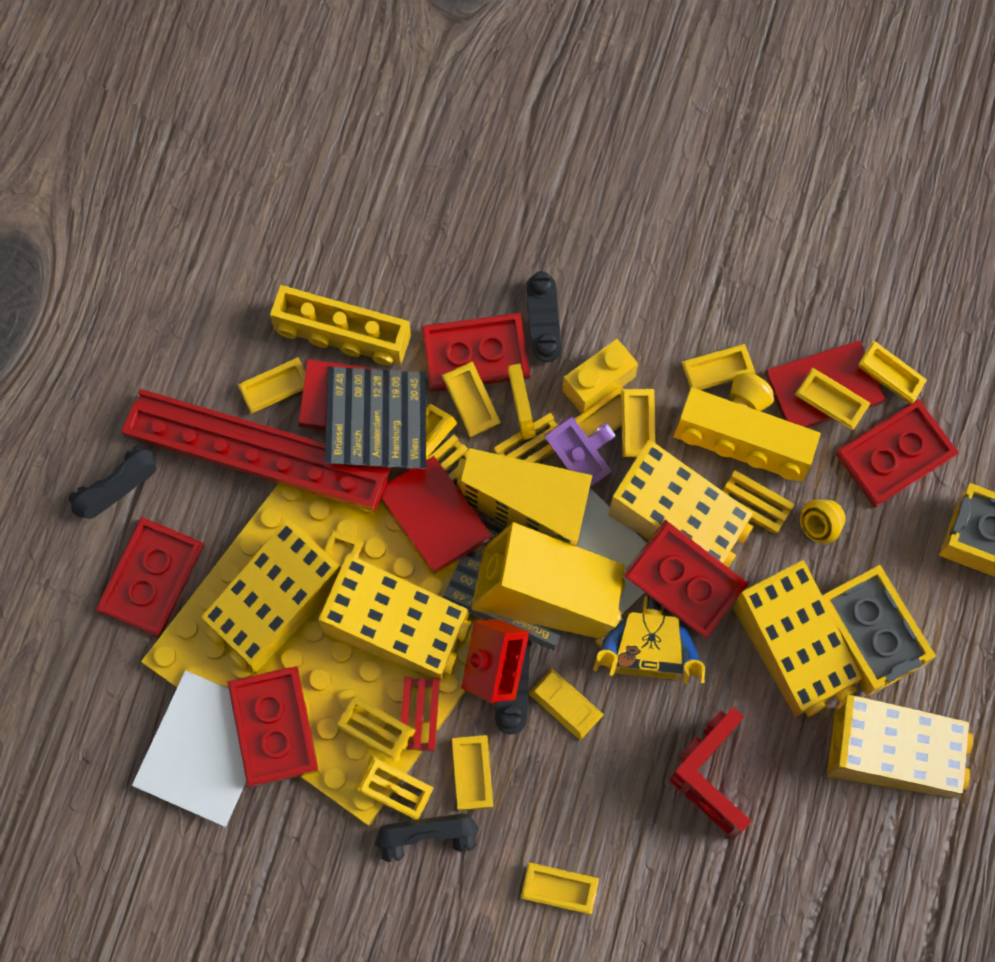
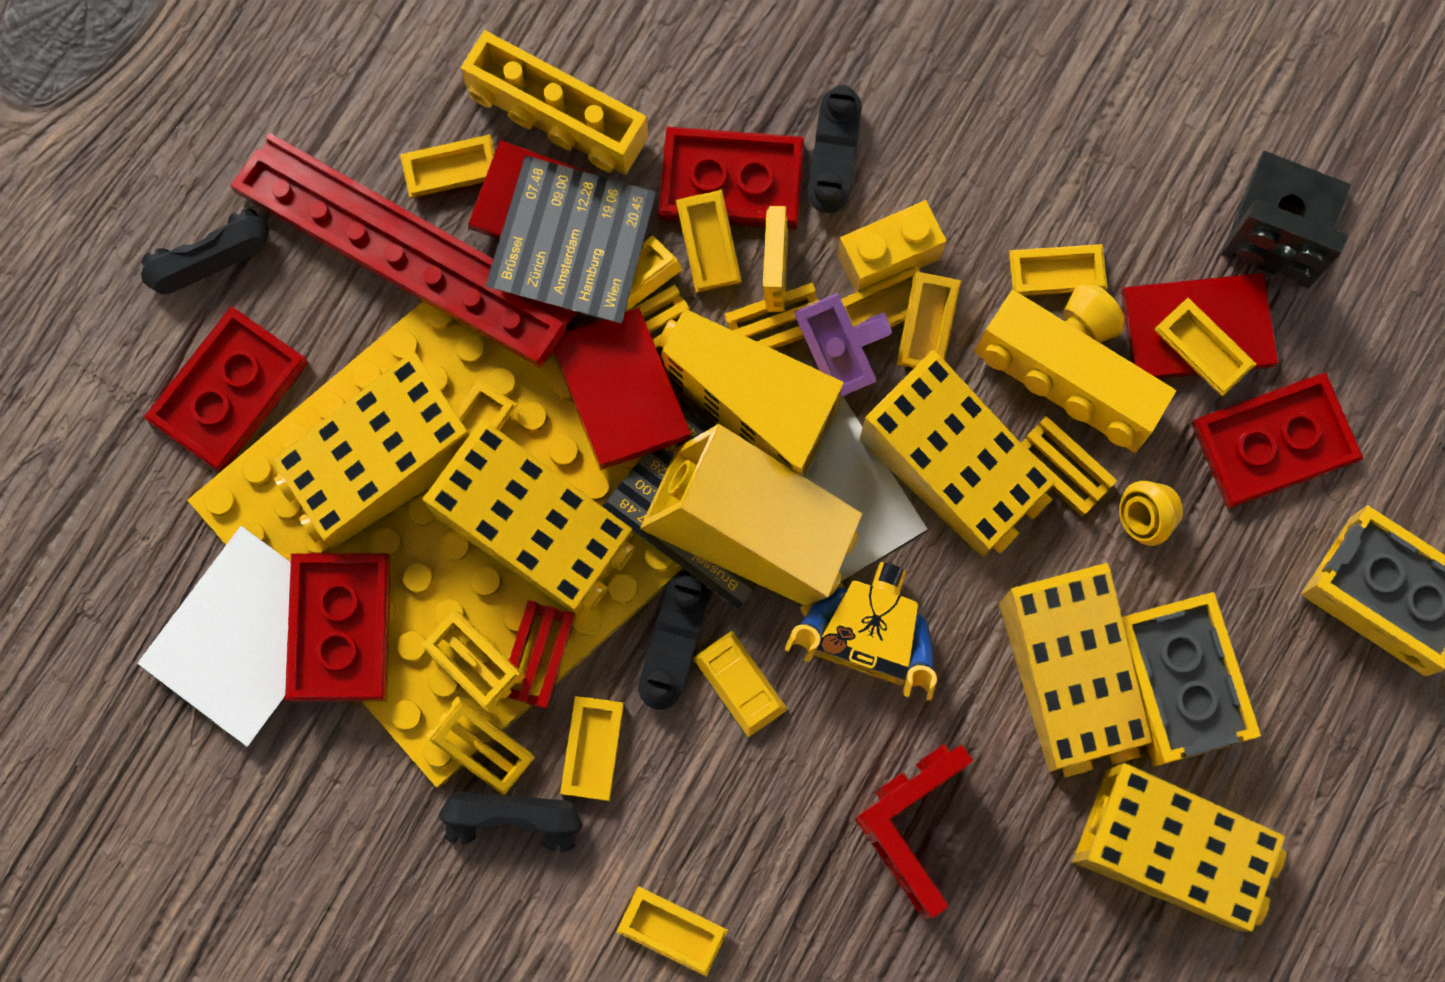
camera: 15 degrees right, 5 degrees up
(494, 660) = (654, 605): red brick -> none
(685, 579) = (940, 551): red tile -> none
(867, 314) = (1281, 240): none -> pearl dark grey bracket
(892, 372) = (1297, 328): yellow tile -> none

